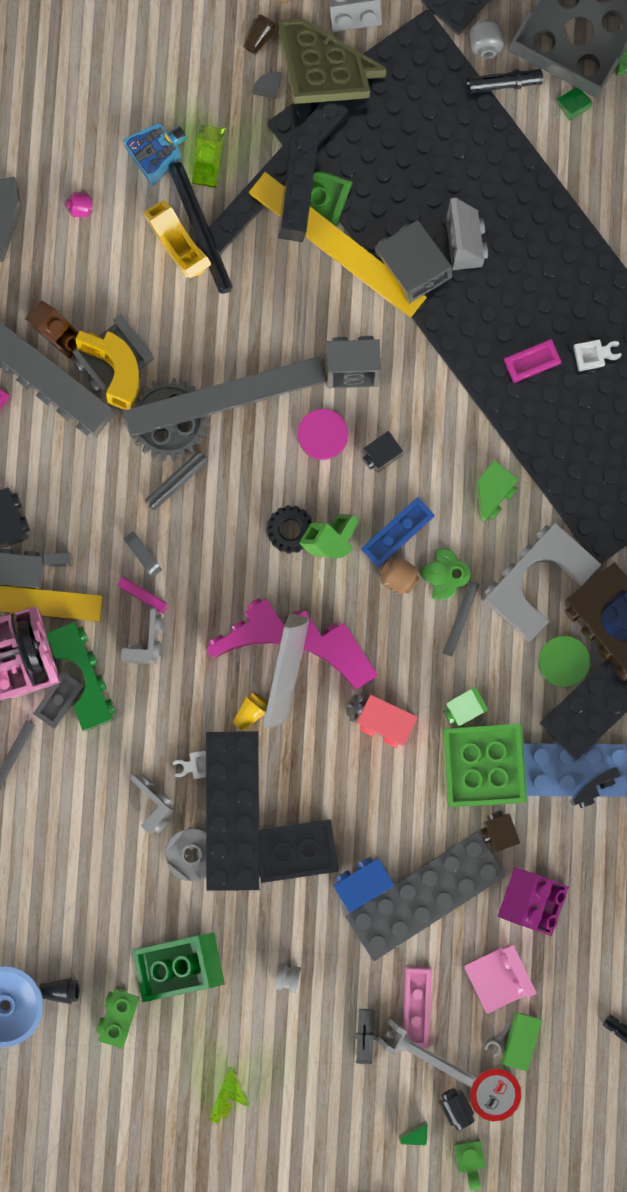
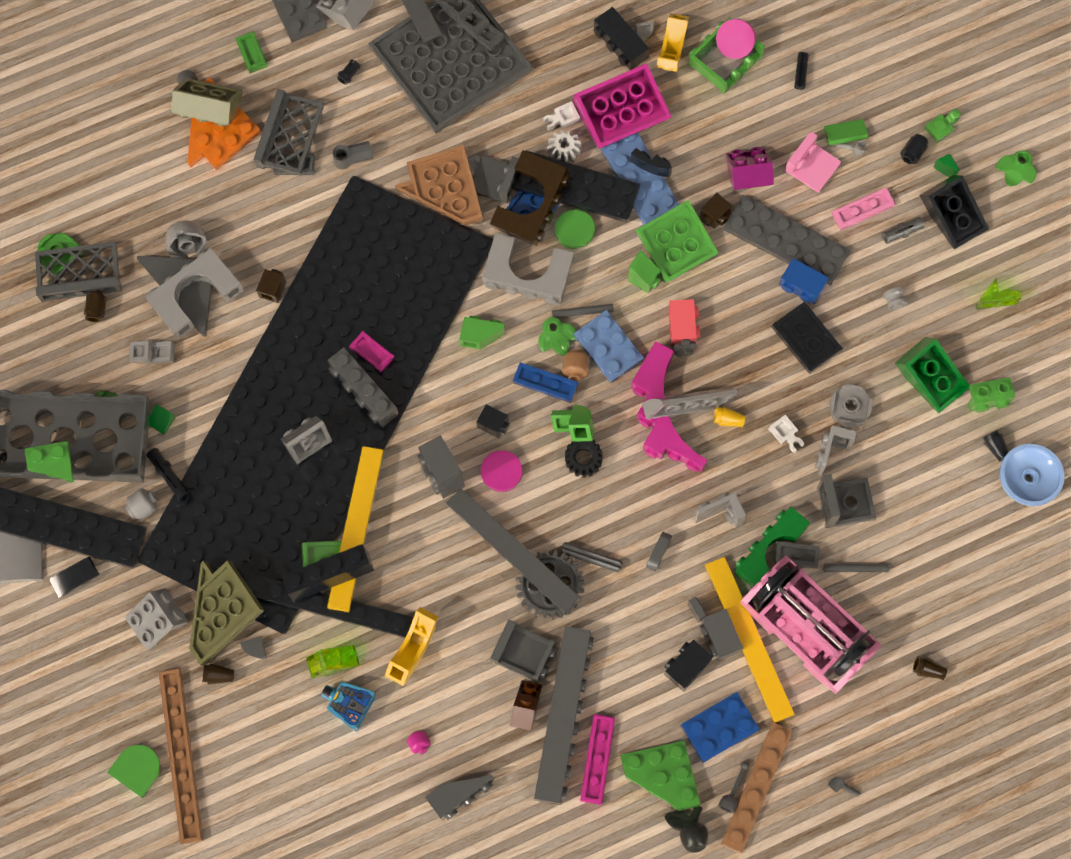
camera: 115 degrees left, 10 degrees down
(90, 770) = (834, 506): none -> dark grey bracket
(126, 383) = (526, 636): yellow arch -> none
(142, 595) = (688, 535): dark pink tile -> none
(200, 227) = (392, 636): black axle -> none
(232, 811) = (805, 391): black plate -> none
(356, 1110) = (954, 210): none -> black slope
(403, 624) = (608, 346): none -> medium blue plate
(414, 261) = (340, 466): dark grey panel -> none
(492, 1092) = (891, 133): light grey piece -> none
(493, 328) = (363, 387): none -> dark grey brick
(592, 355) = (346, 312): white plate -> none

